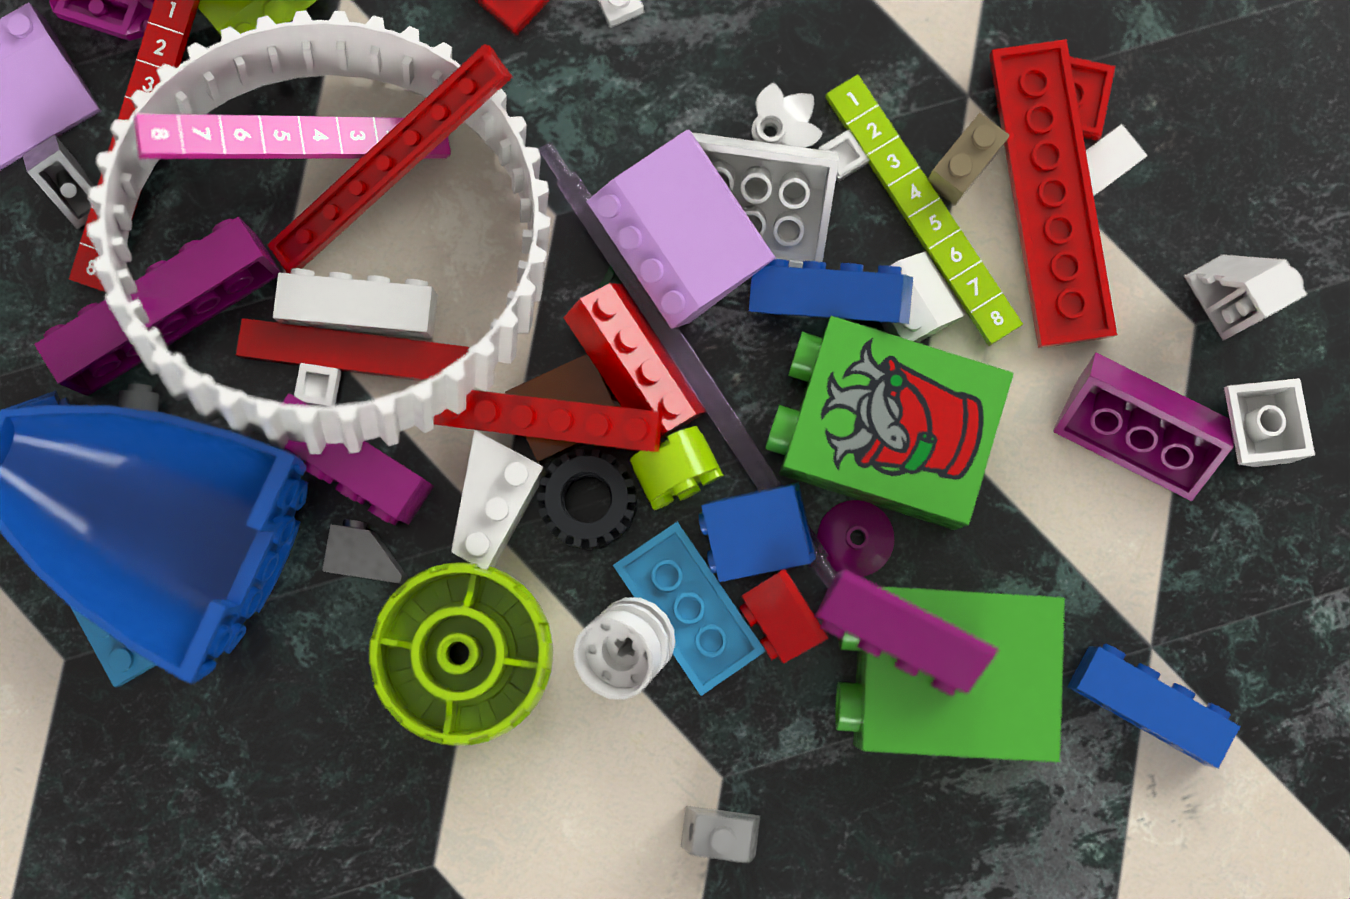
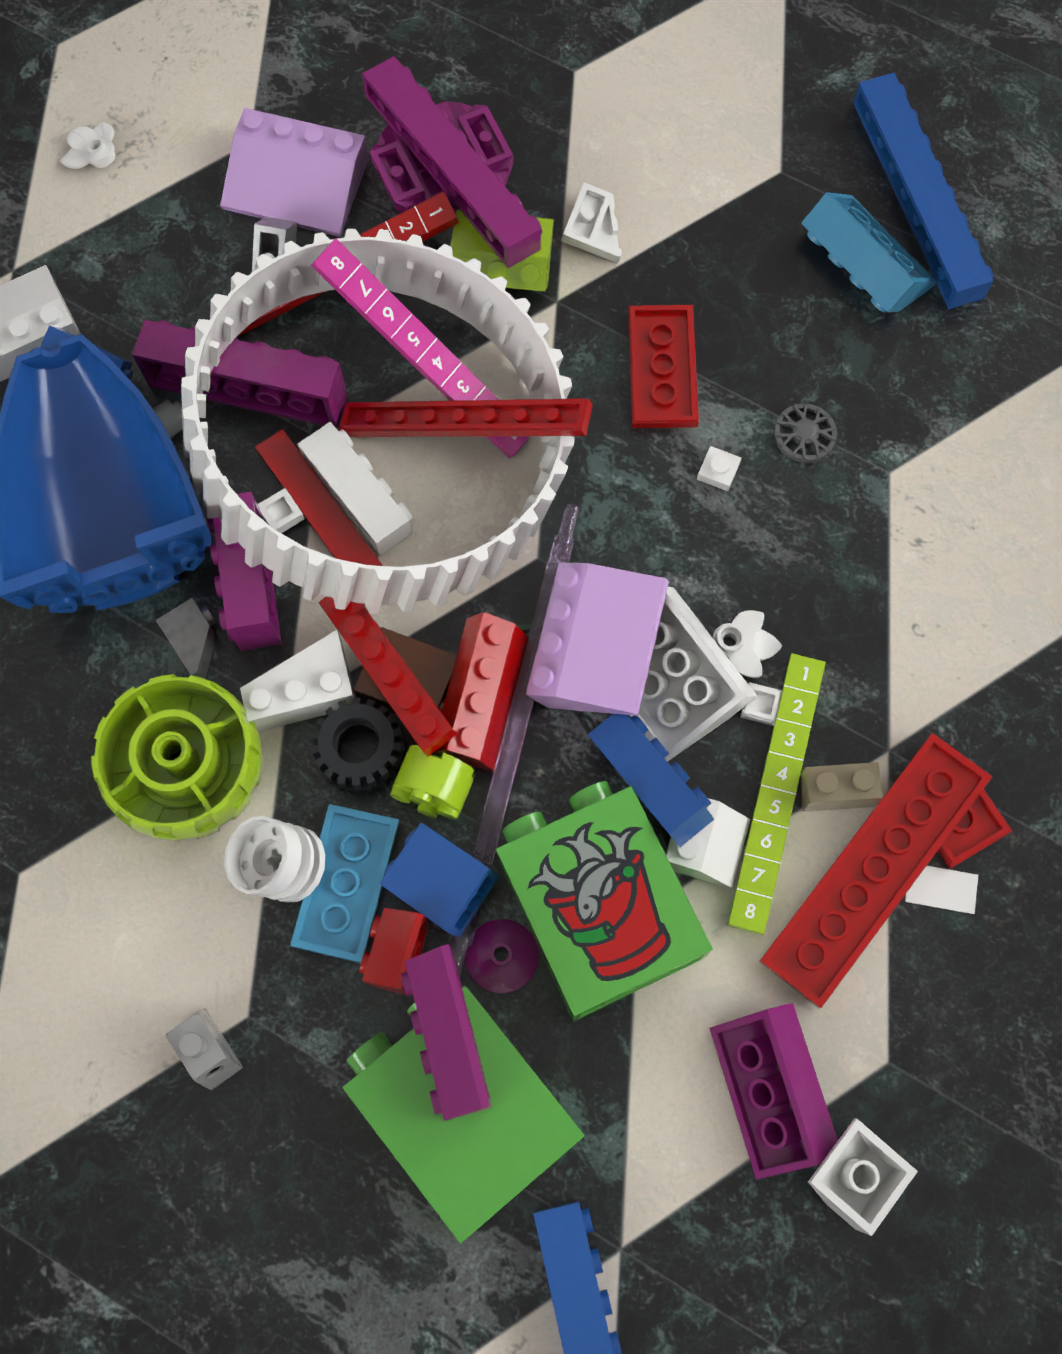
camera: 50 degrees right, 10 degrees down
(1244, 290) = (940, 1070): white wedge -> none

